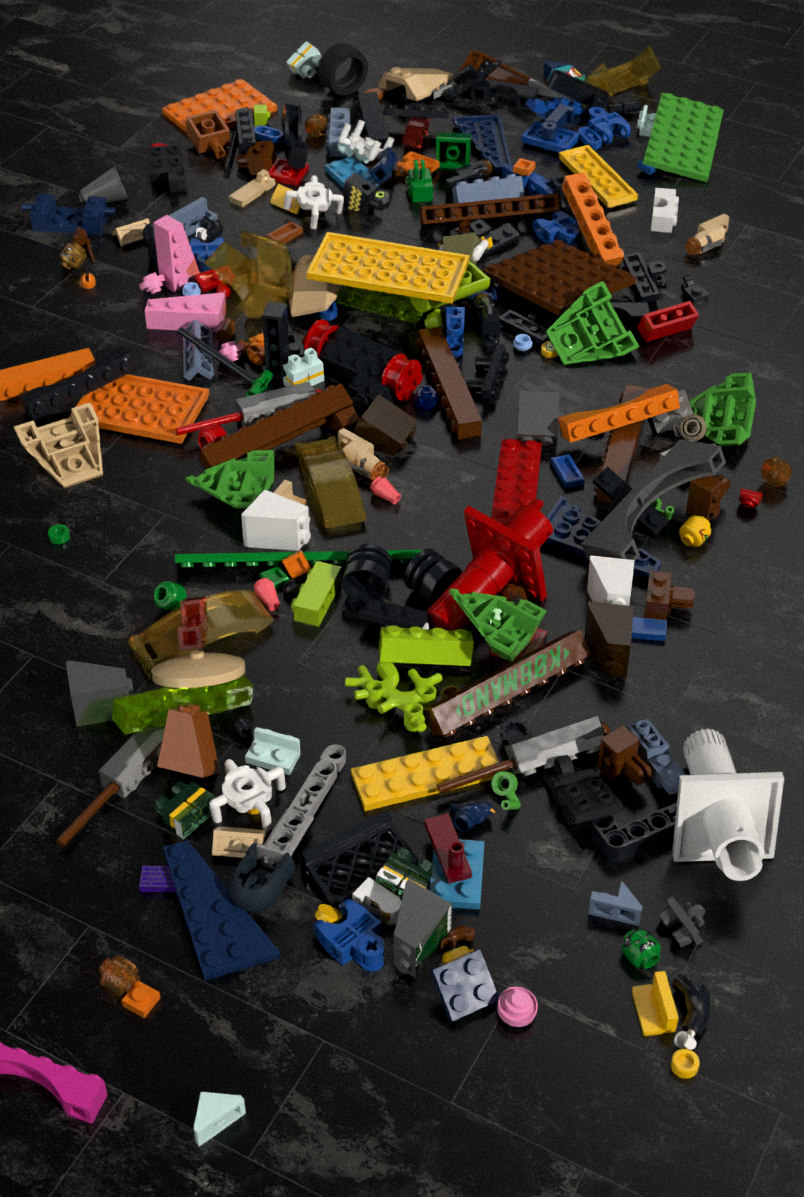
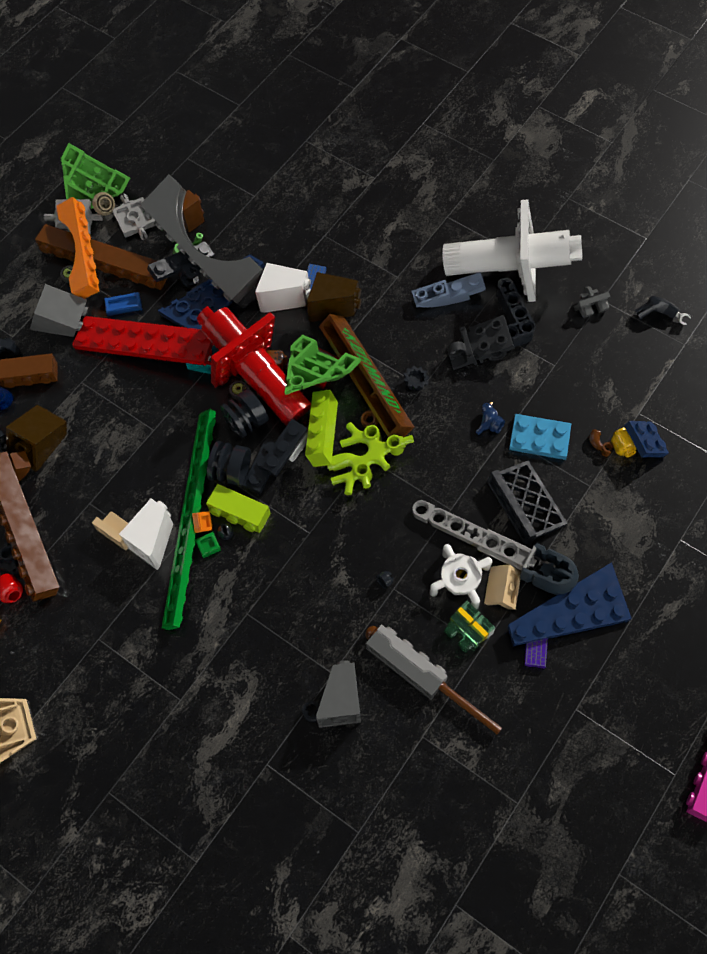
camera: 80 degrees left, 20 degrees up
(58, 534) = (107, 742): green tile -> none
(118, 975) = (633, 681): clear orange head -> none
(141, 999) = (649, 667): orange plate -> none
(151, 708) = (391, 661): clear neon green brick -> none
(168, 595) = (223, 632): green head -> none
(188, 742) = (417, 618): dark orange slope -> none
(193, 631) = (285, 606): clear red brick -> none
(198, 670) = (330, 607): tan dish -> none
(226, 615) = (266, 608): clear yellow windscreen -> none
(240, 480) = (83, 565): bright green wedge -> none
(266, 592) = (230, 550): coral cone -> none
(273, 750) = (413, 557): light aqua bracket -> none
(328, 913) = (579, 525): yellow tile -> none
(331, 482) = (94, 485): clear yellow windscreen -> none
(354, 938) = (600, 509): blue piece -> none
(361, 455) = (67, 461): tan plate -> none
(378, 901) = (571, 485): white leg -> none
(382, 488) = (117, 443): coral cone -> none
(399, 870) = (553, 468): clear green hips -> none
(420, 772) = (443, 447): yellow plate -> none
(420, 928) = (603, 462): dark grey slope -> none
(448, 848) = (528, 435): dark red piece -> none
(498, 787) = (468, 392): bright green plate -> none
(517, 1006) = (659, 410): bright pink plate -> none
(540, 750) = (437, 362): piece -> none
(620, 758) = (453, 310): reddish brown brick -> none
(621, 908) = (576, 335): sand blue slope -> none
(641, 948) = (612, 330): green head -> none
(656, 1006) = (656, 330): yellow panel -> none
(663, 596) = (289, 255): reddish brown brick -> none
(685, 1063) = (697, 323): yellow tile -> none
(695, 531) = (220, 226): yellow head -> none
(749, 498) = (189, 184): red plate -> none
(776, 471) = (161, 164): clear orange head -> none

